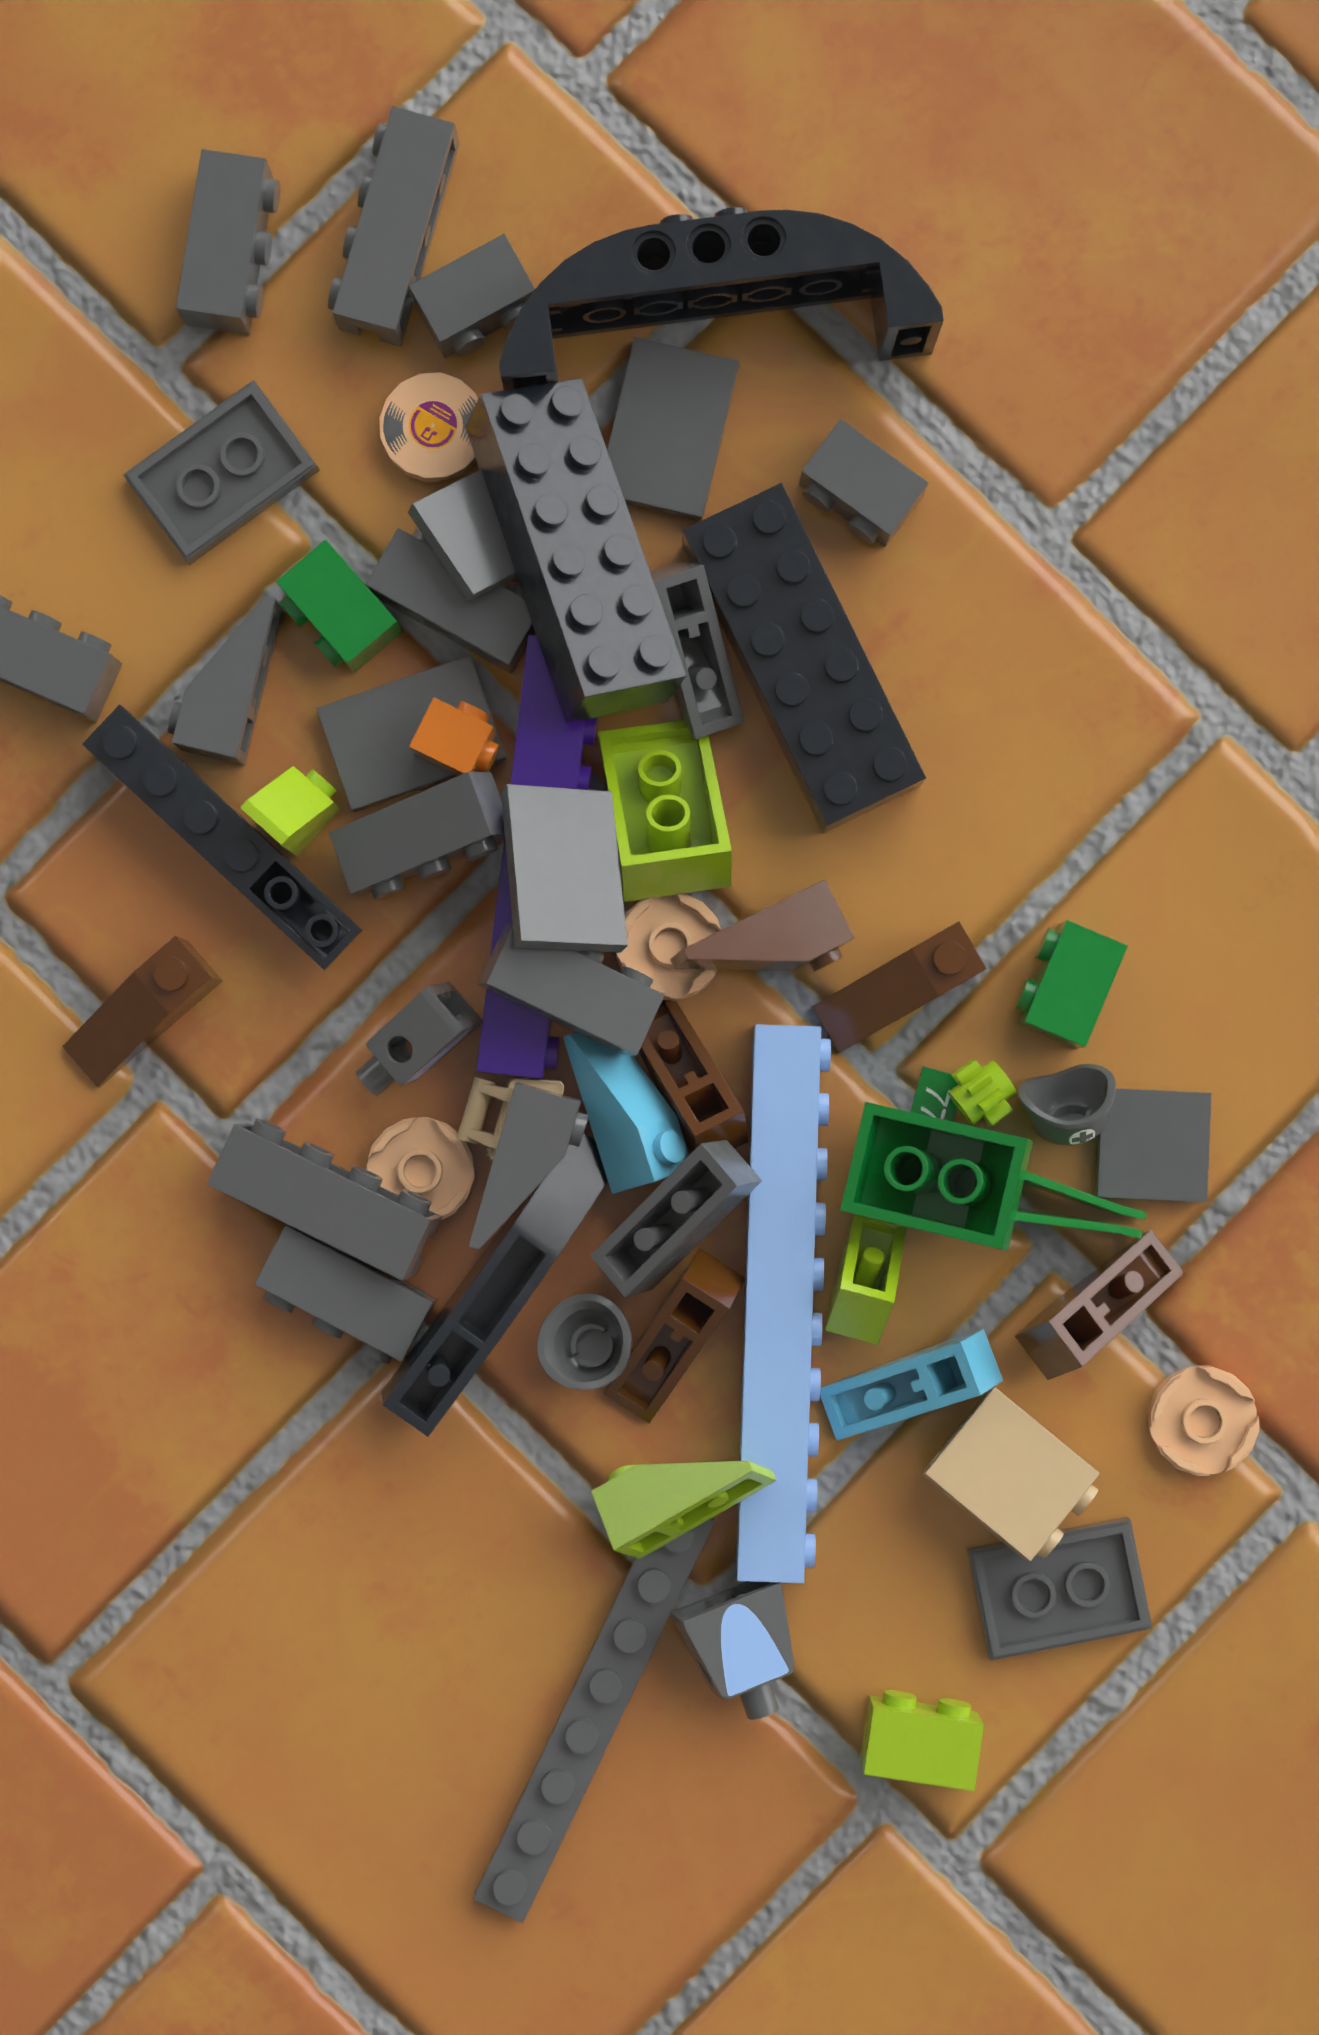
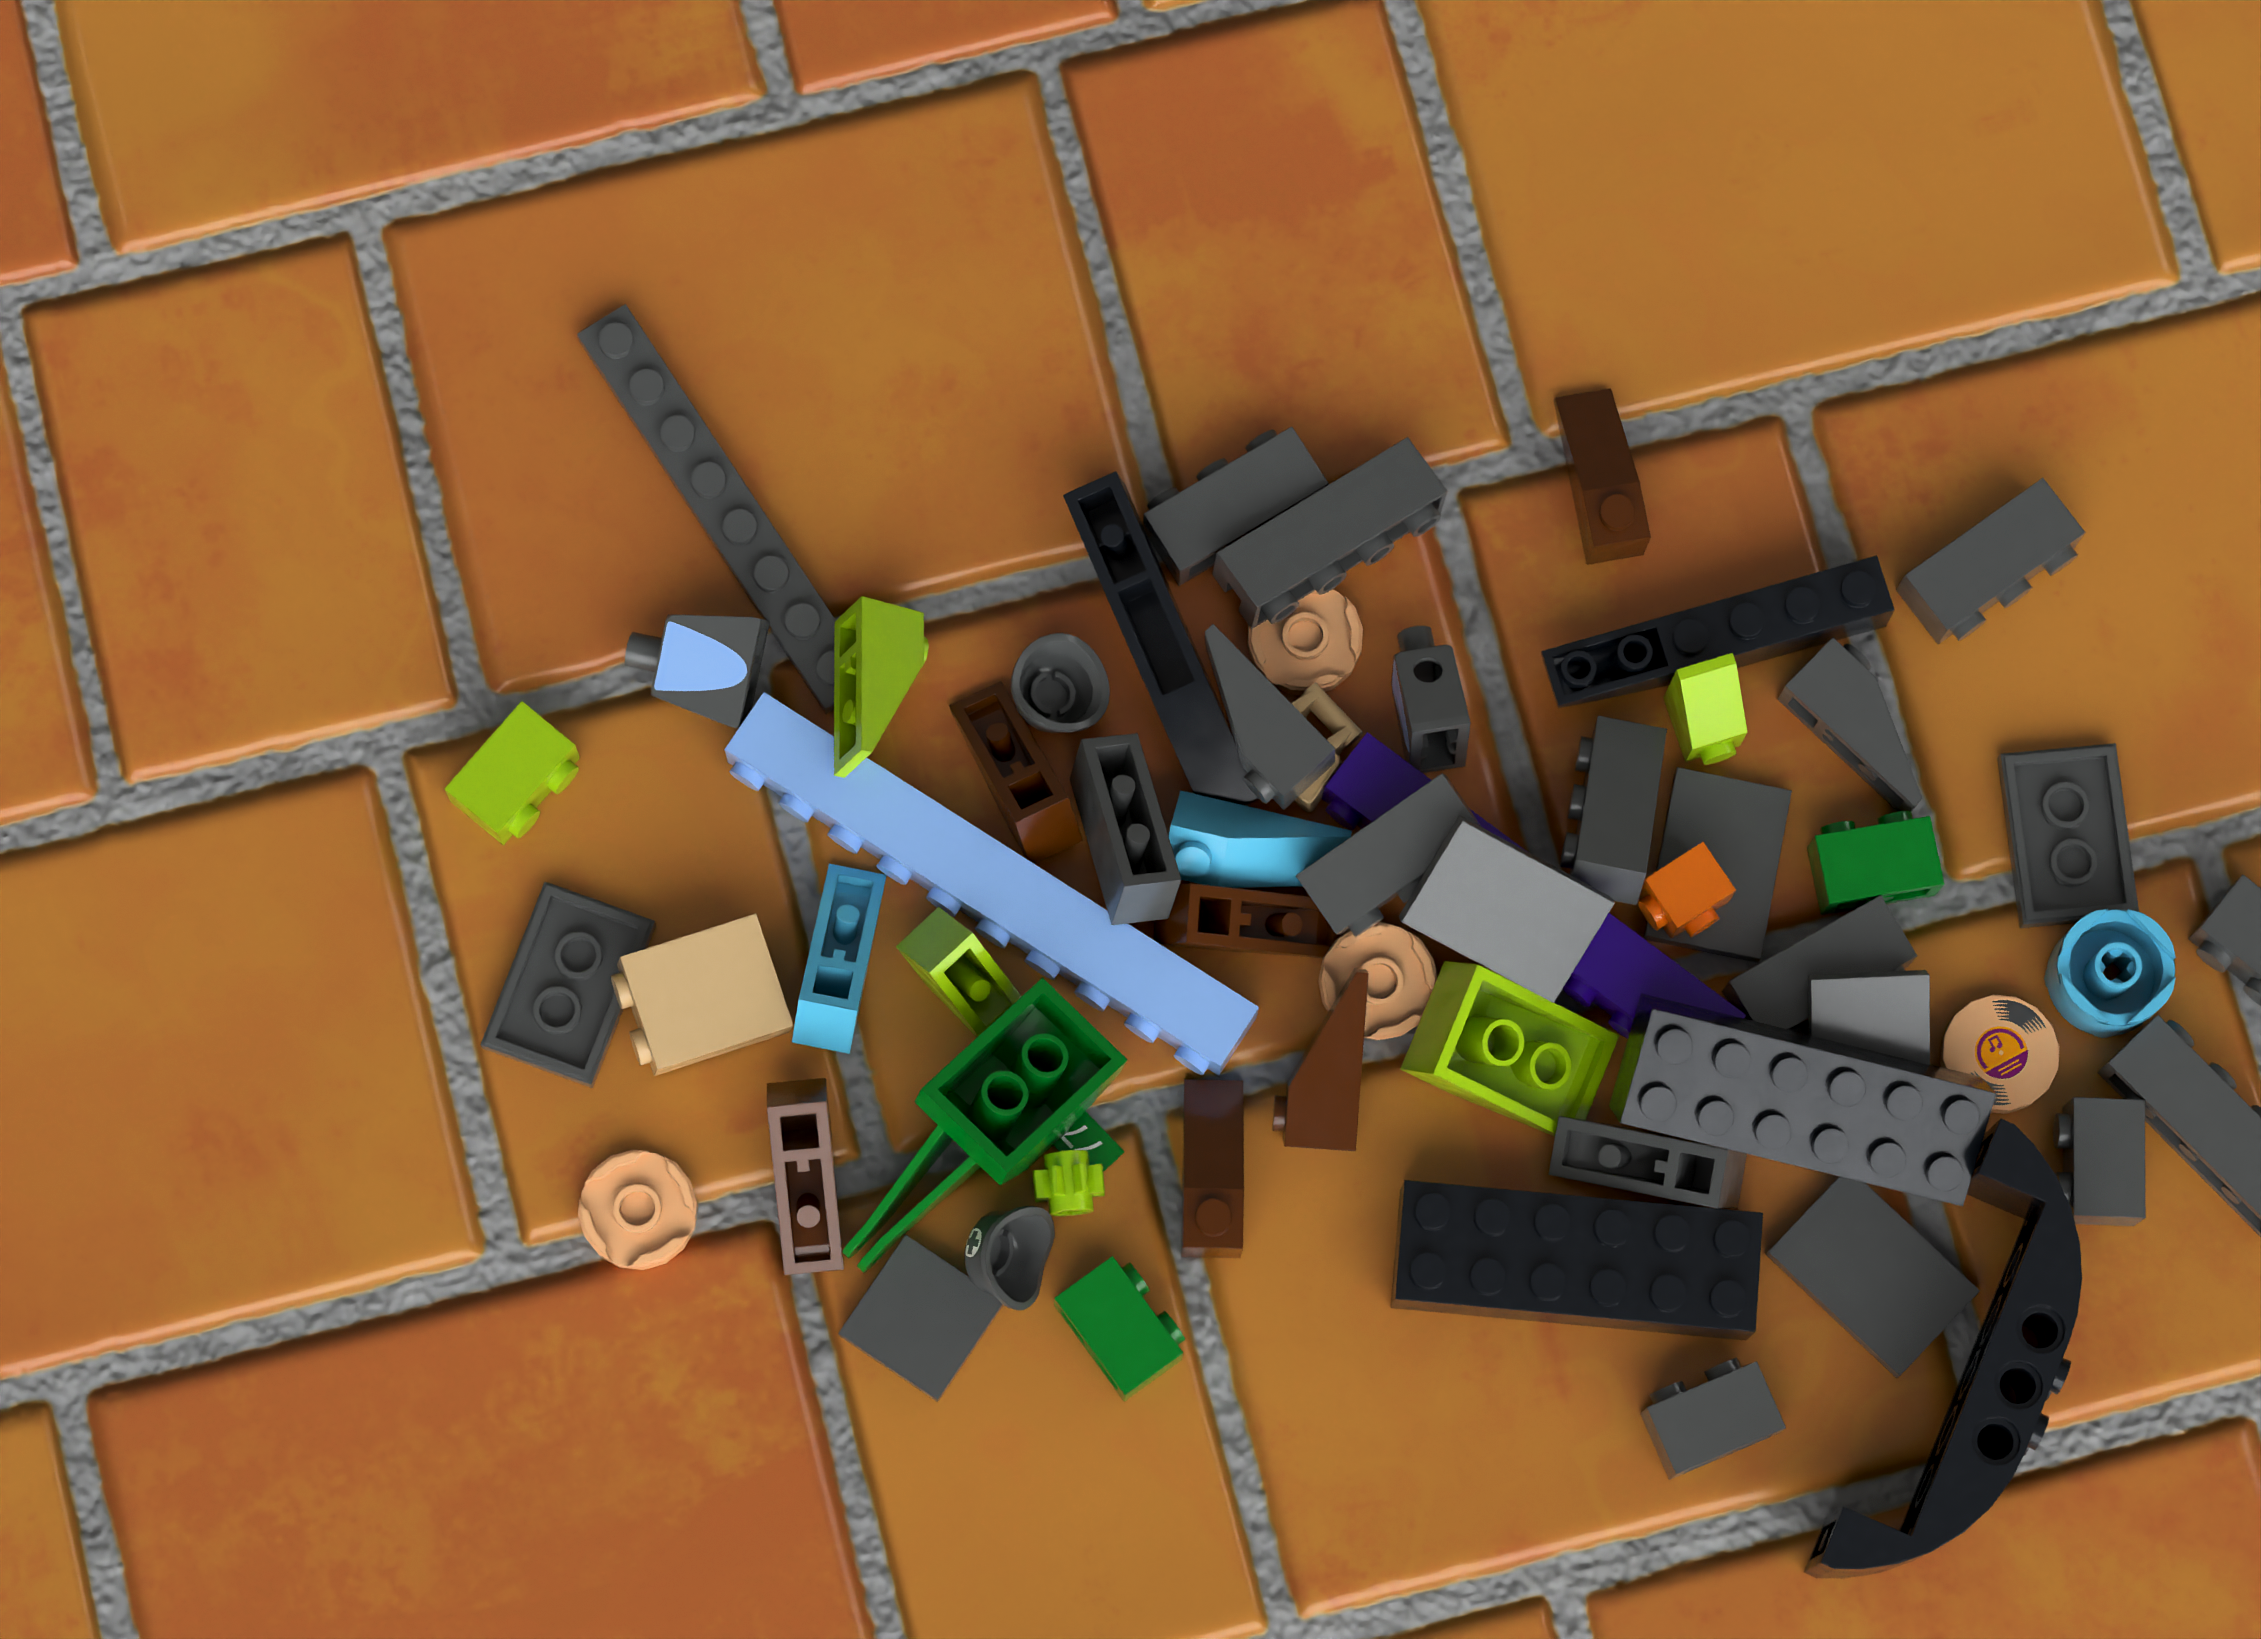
camera: 115 degrees right, 10 degrees down
(301, 345) = (2095, 942): none -> medium azure brick

